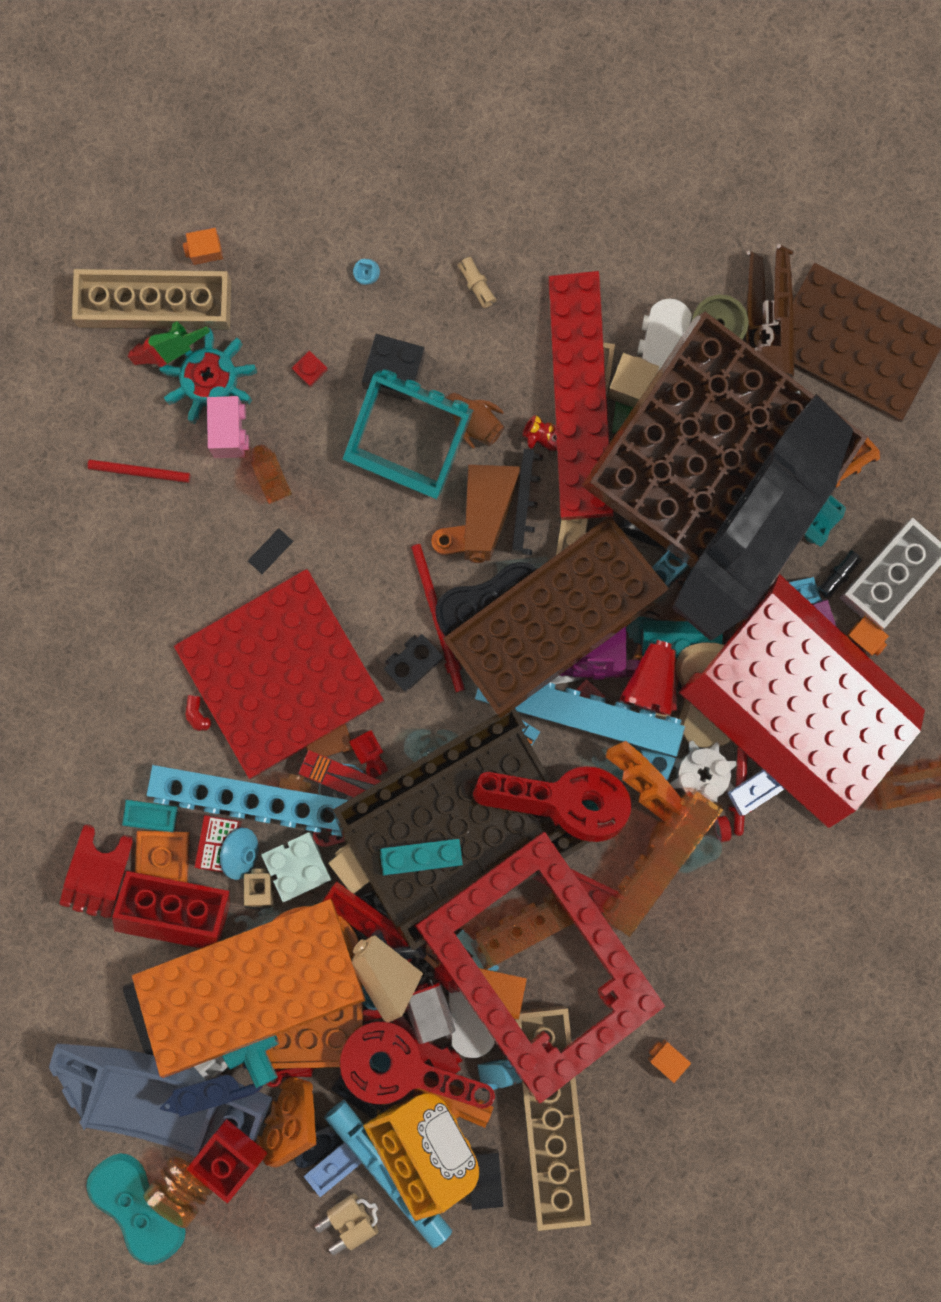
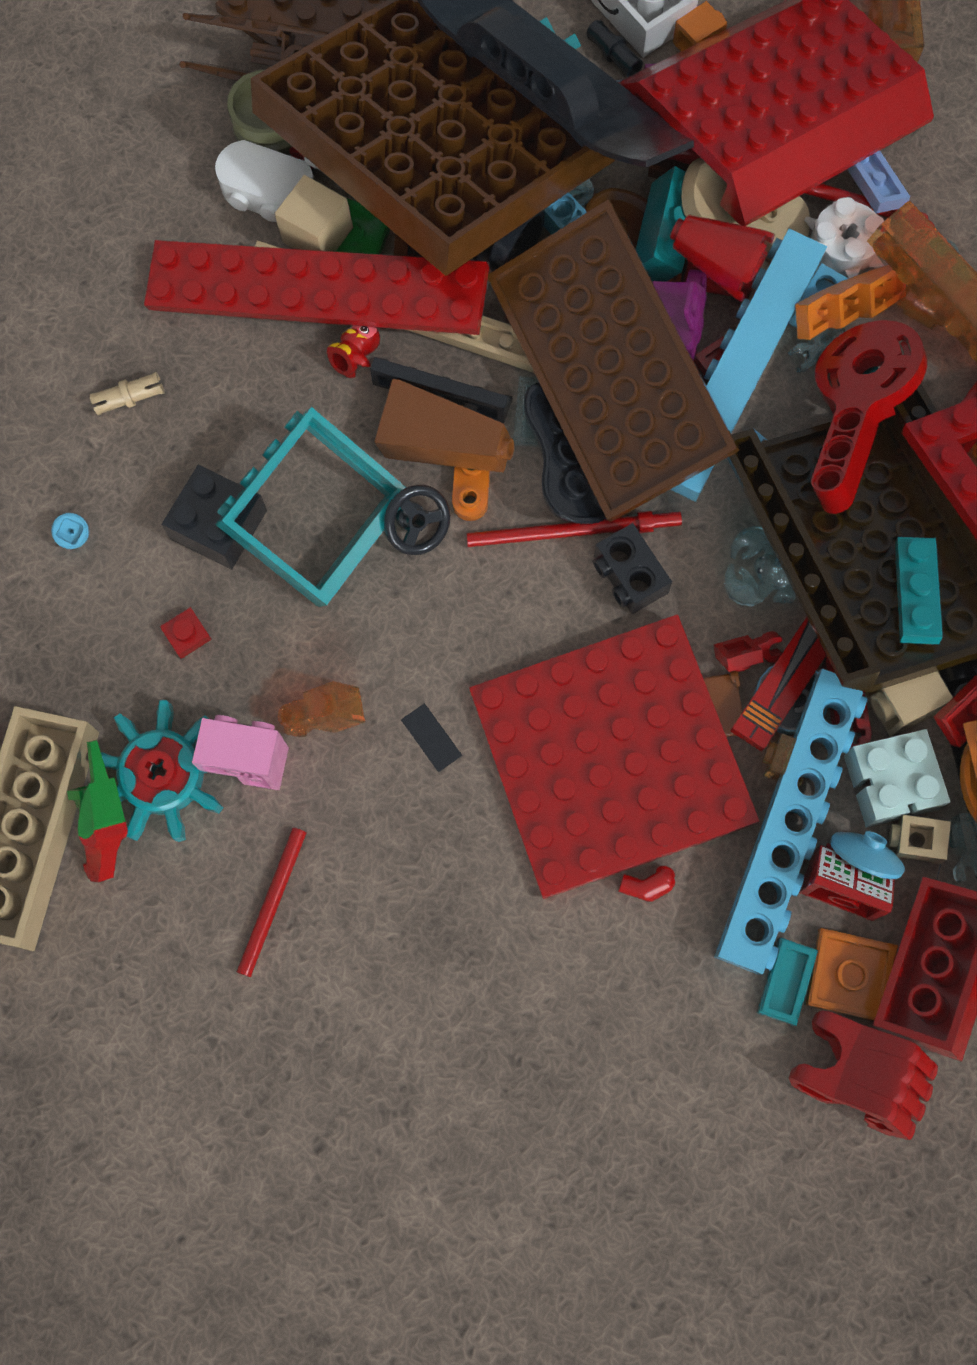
camera: 75 degrees left, 10 degrees down
(420, 505) = (404, 518): none -> black piece
(483, 423) = (331, 405): dark orange animal -> none

